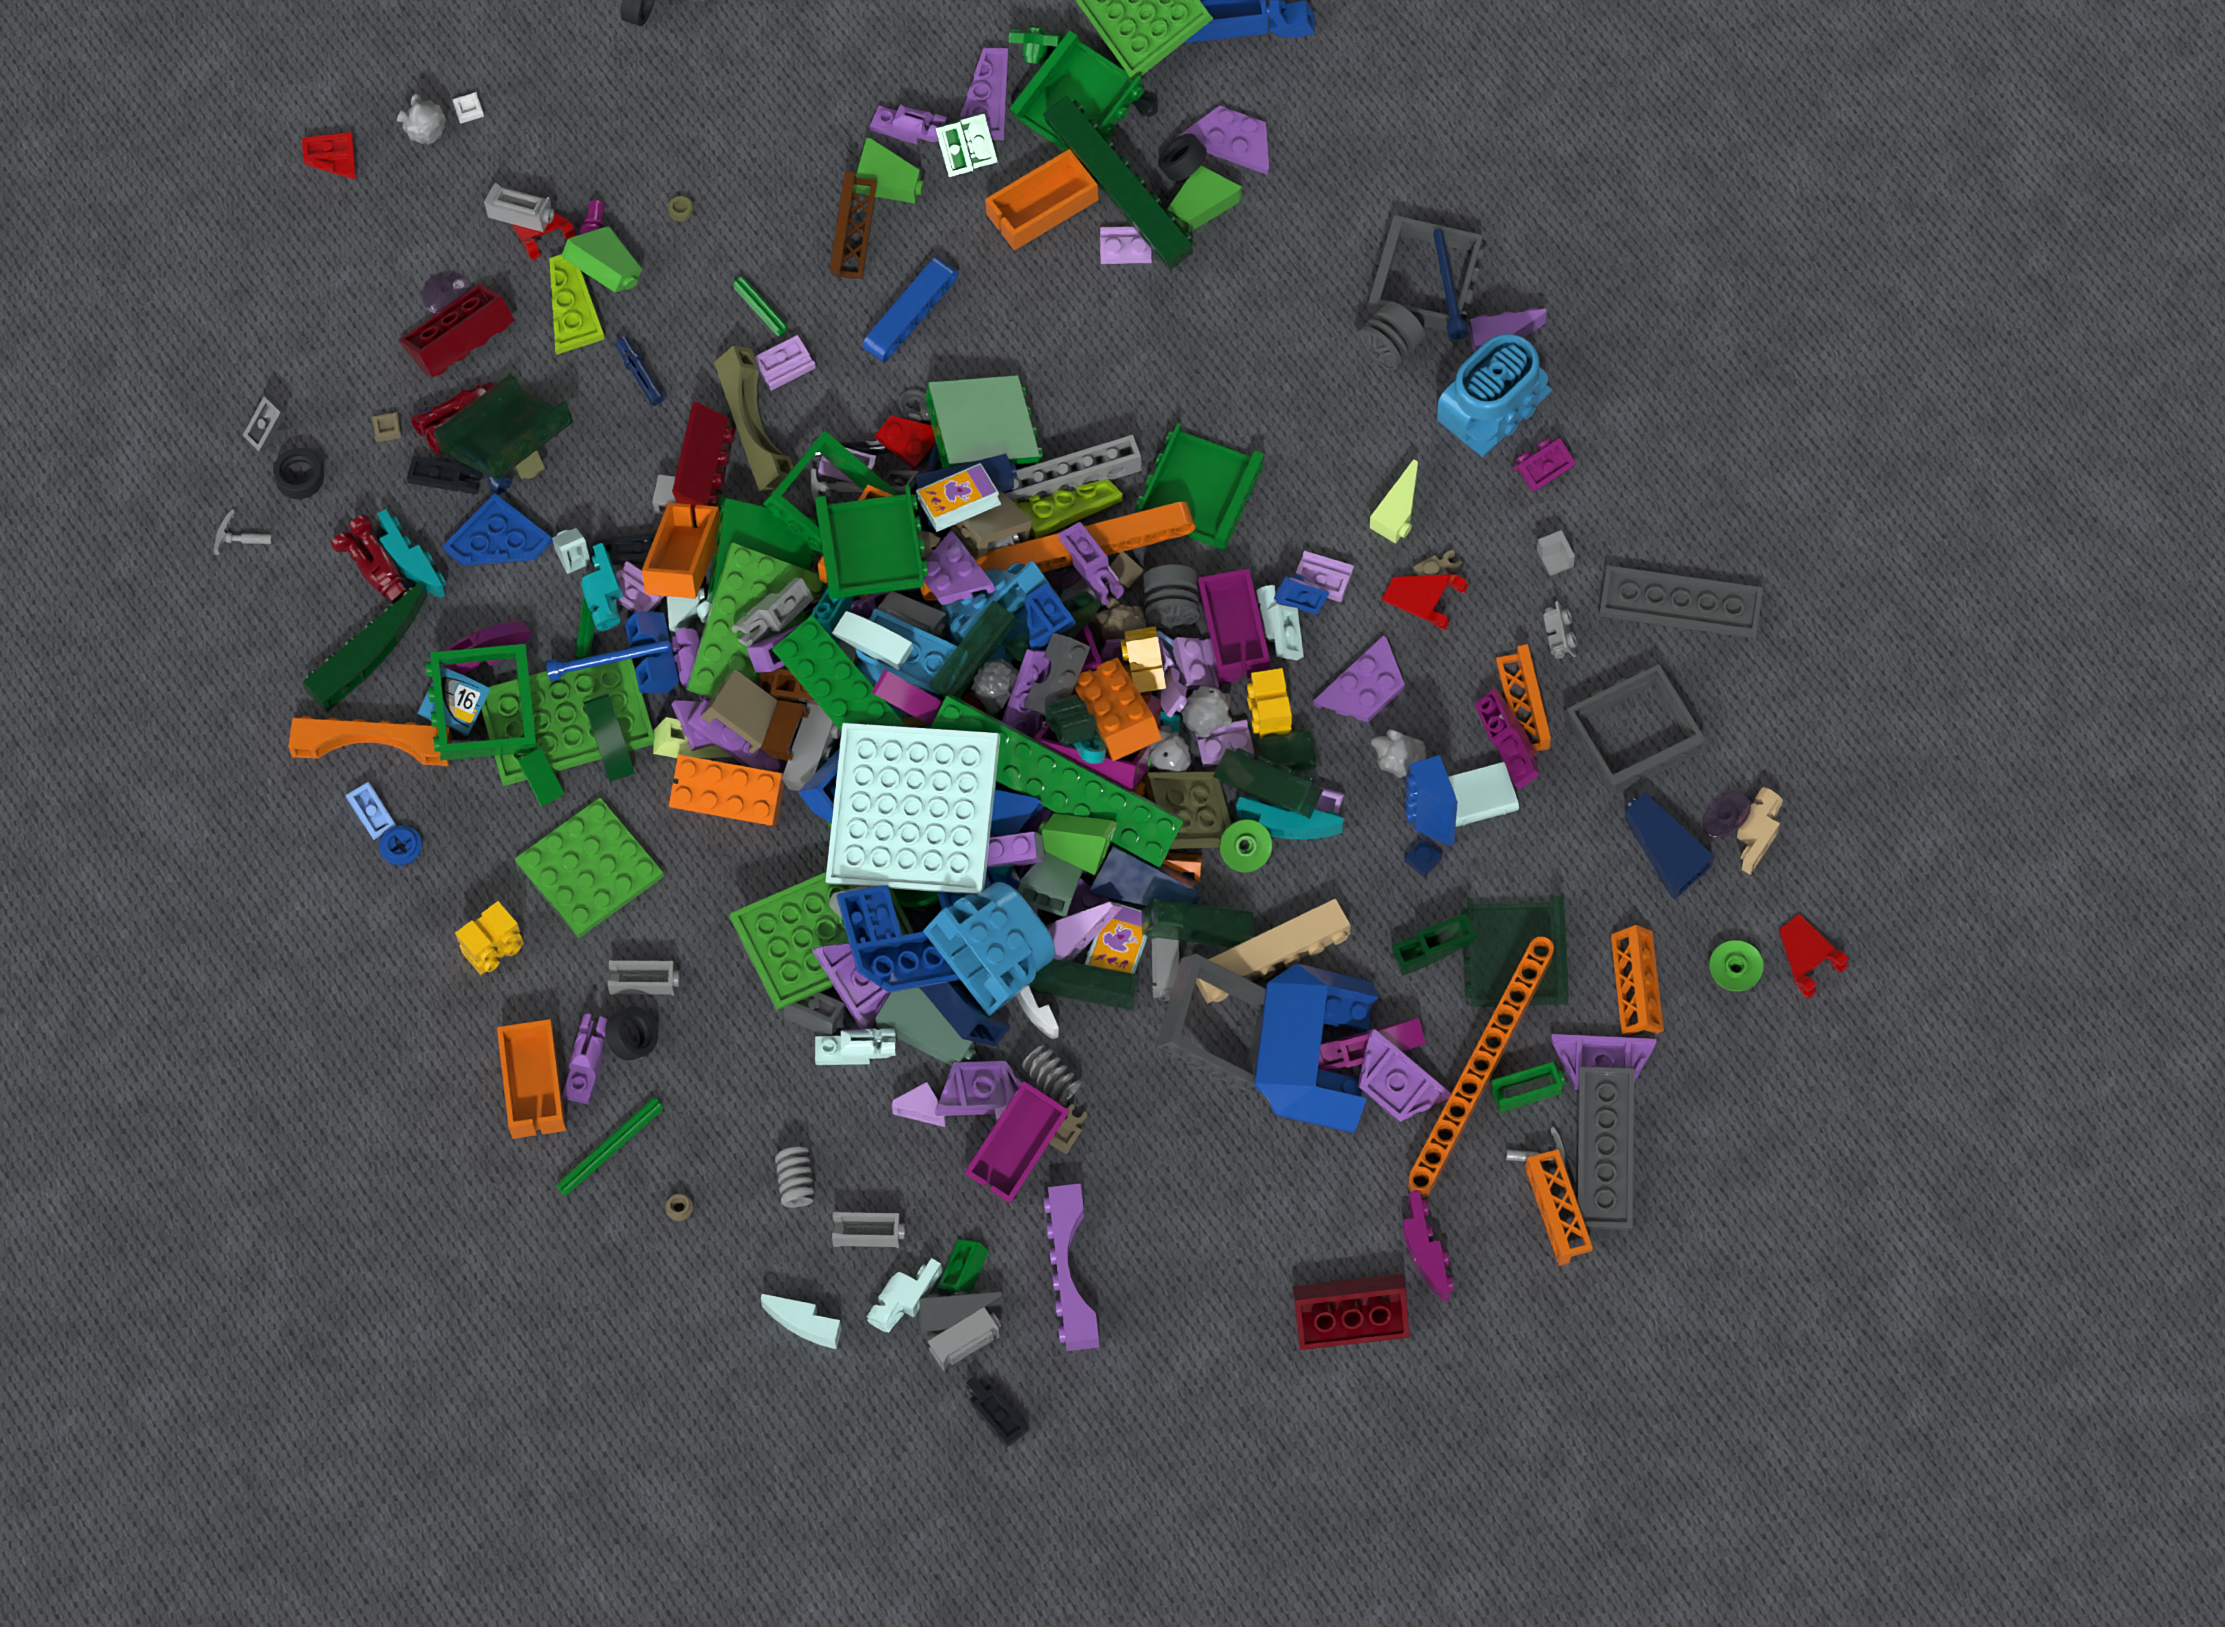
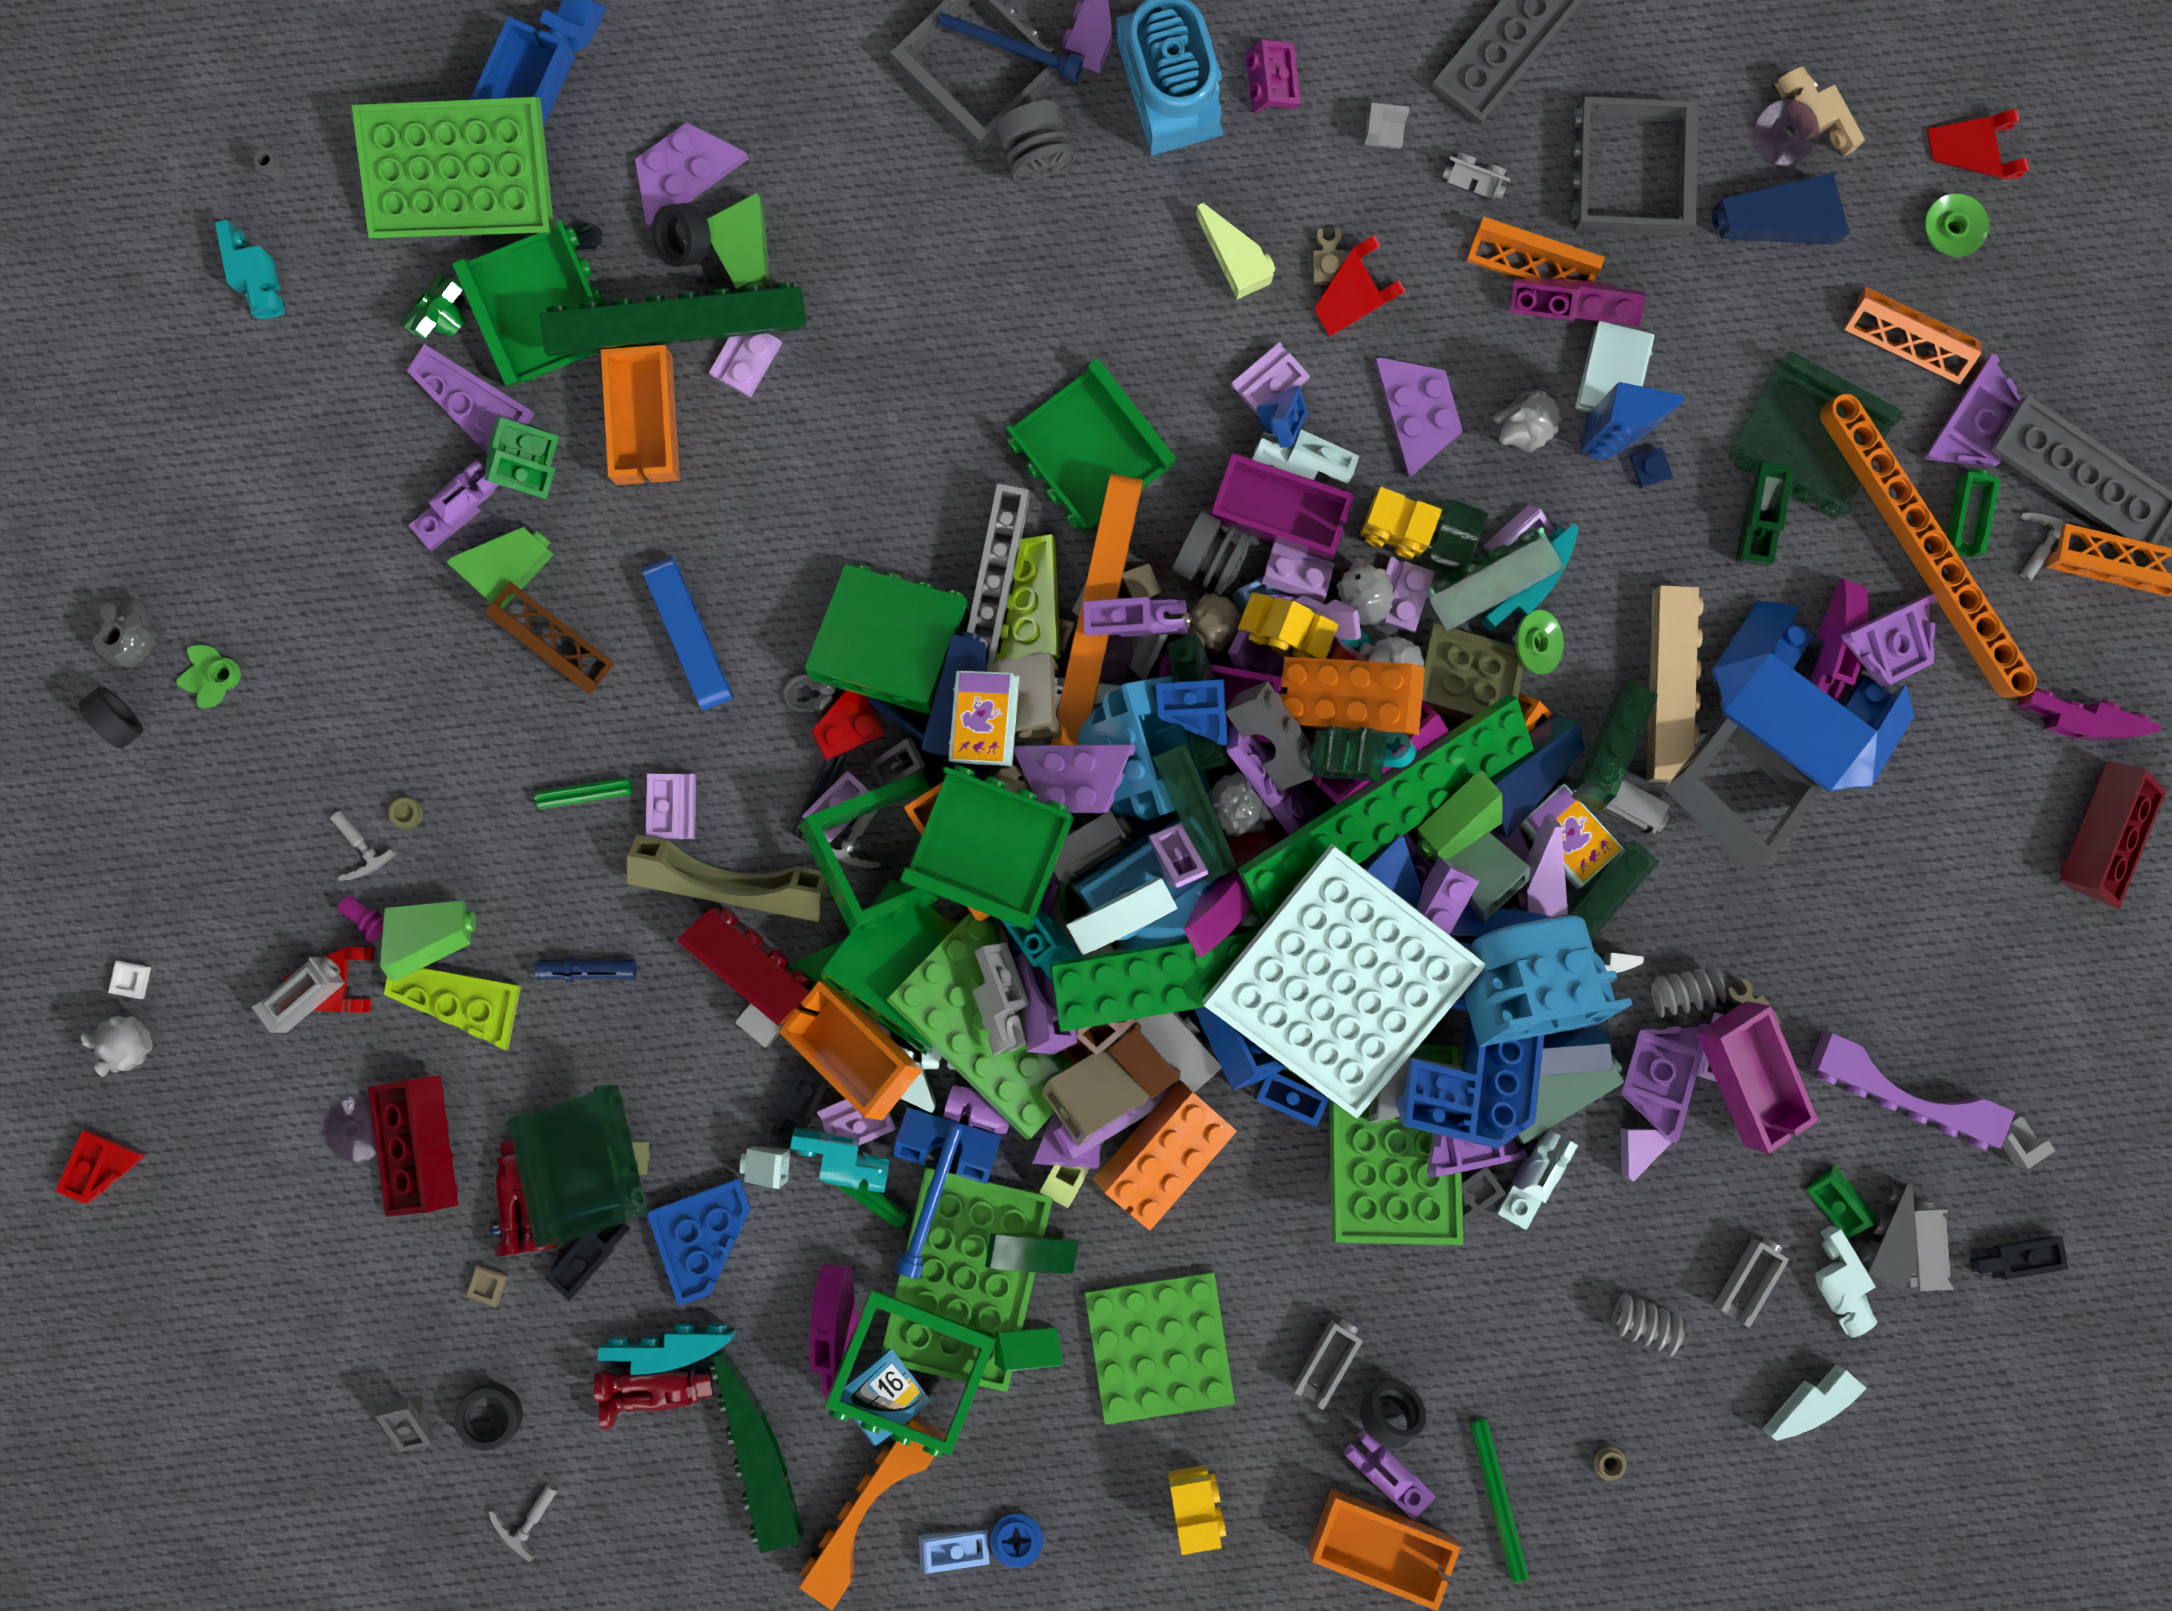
camera: 65 degrees left, 20 degrees up
(644, 189) = (357, 840): none -> light grey piece
(699, 43) = (205, 675): none -> bright green plate
(815, 847) = (1292, 1098): none -> blue brick
(933, 653) = (1177, 856): none -> lavender slope
(1081, 1367) = (2023, 1145): none -> light grey panel

